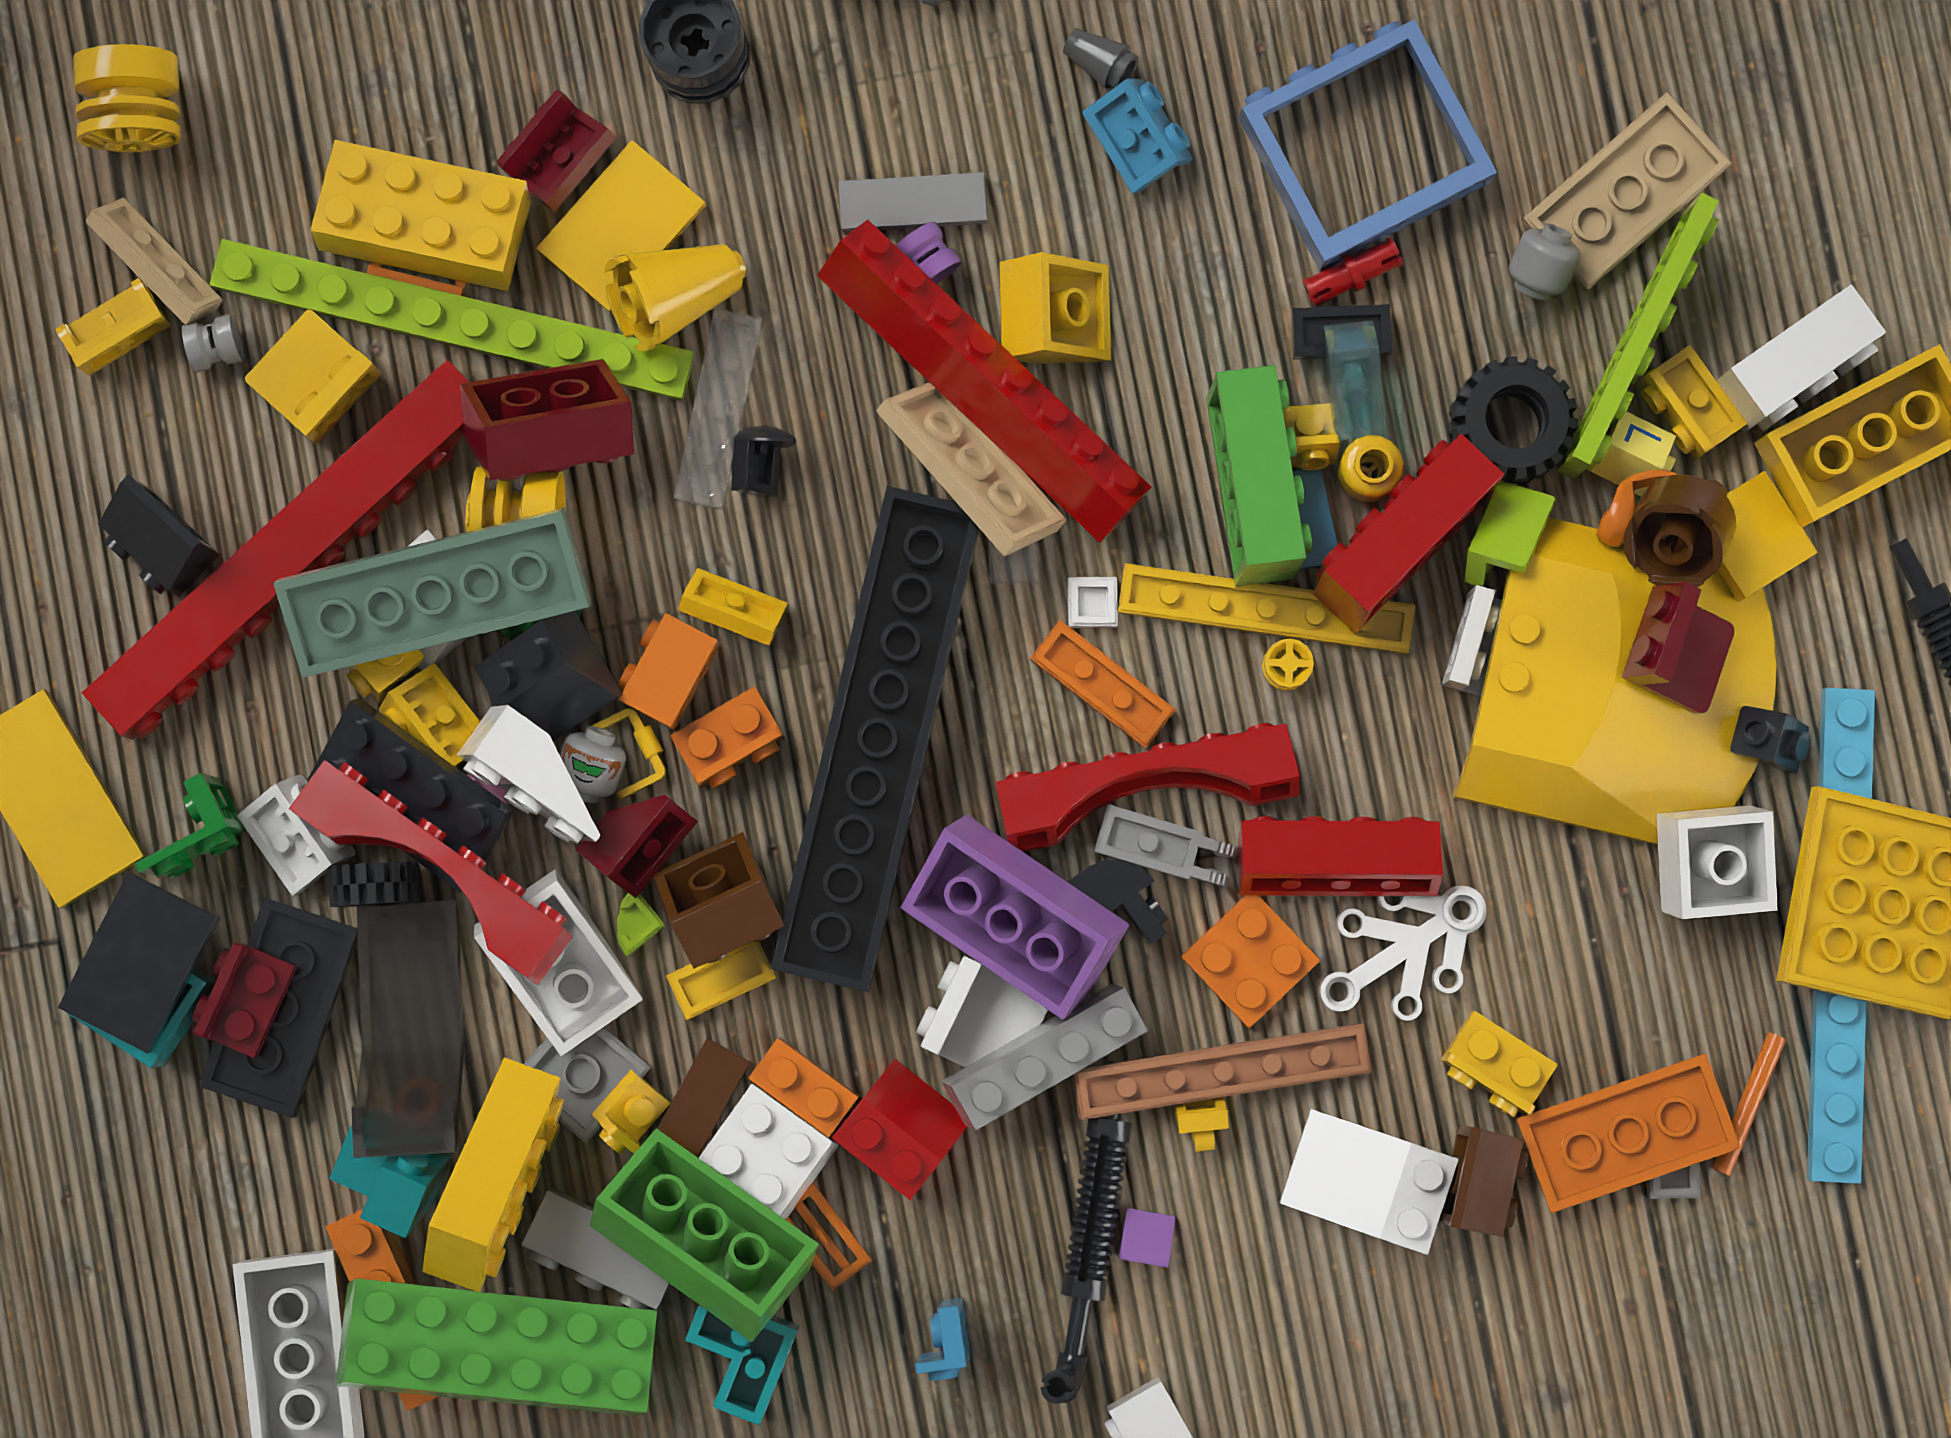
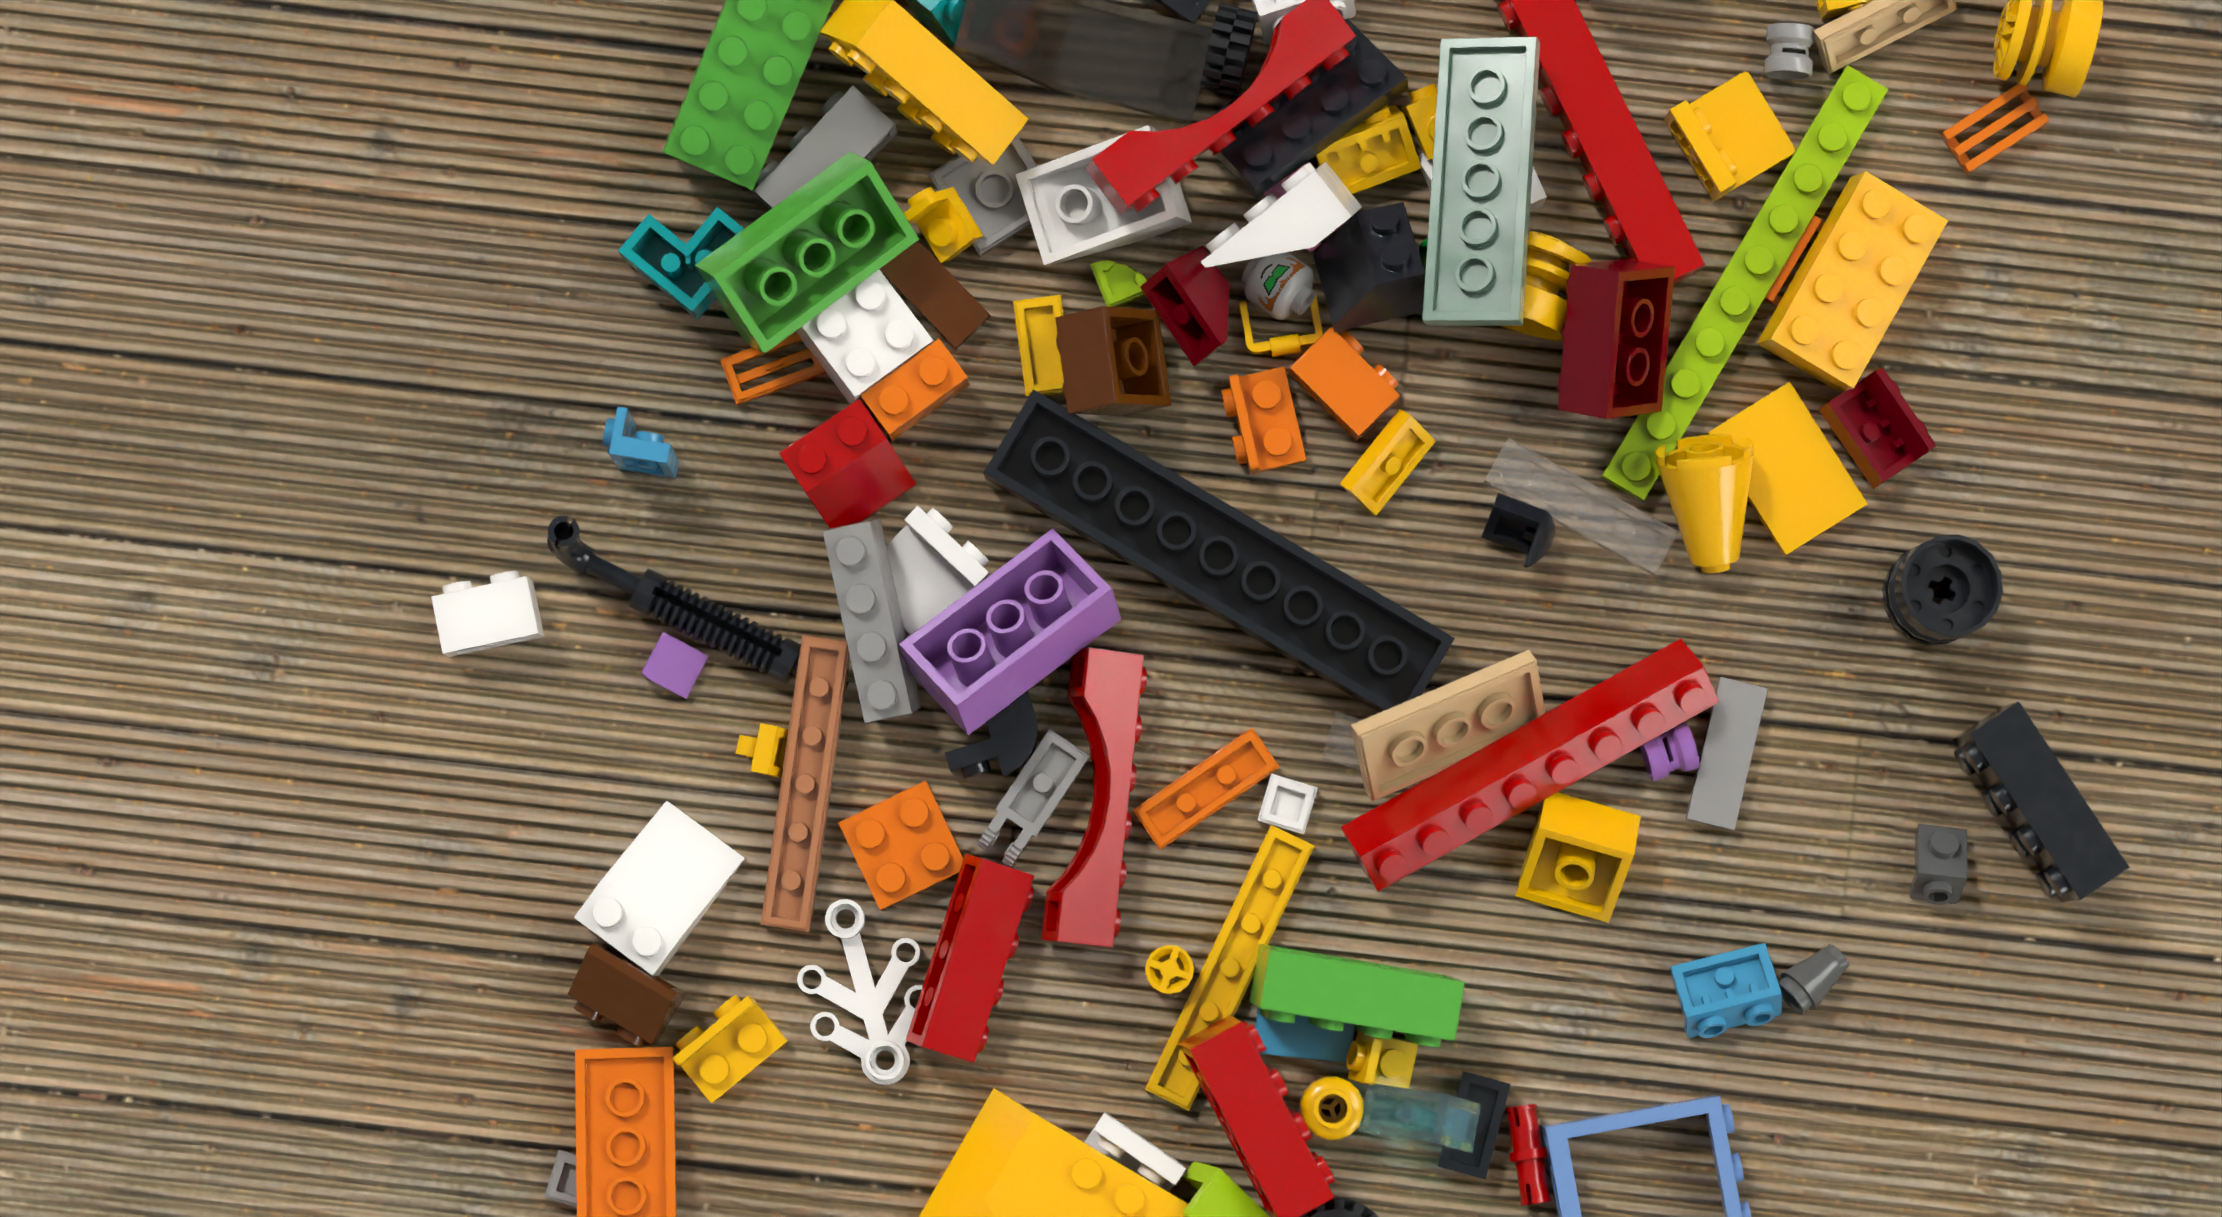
camera: 115 degrees right, 0 degrees up
(197, 102) = (2029, 106): none -> orange tile

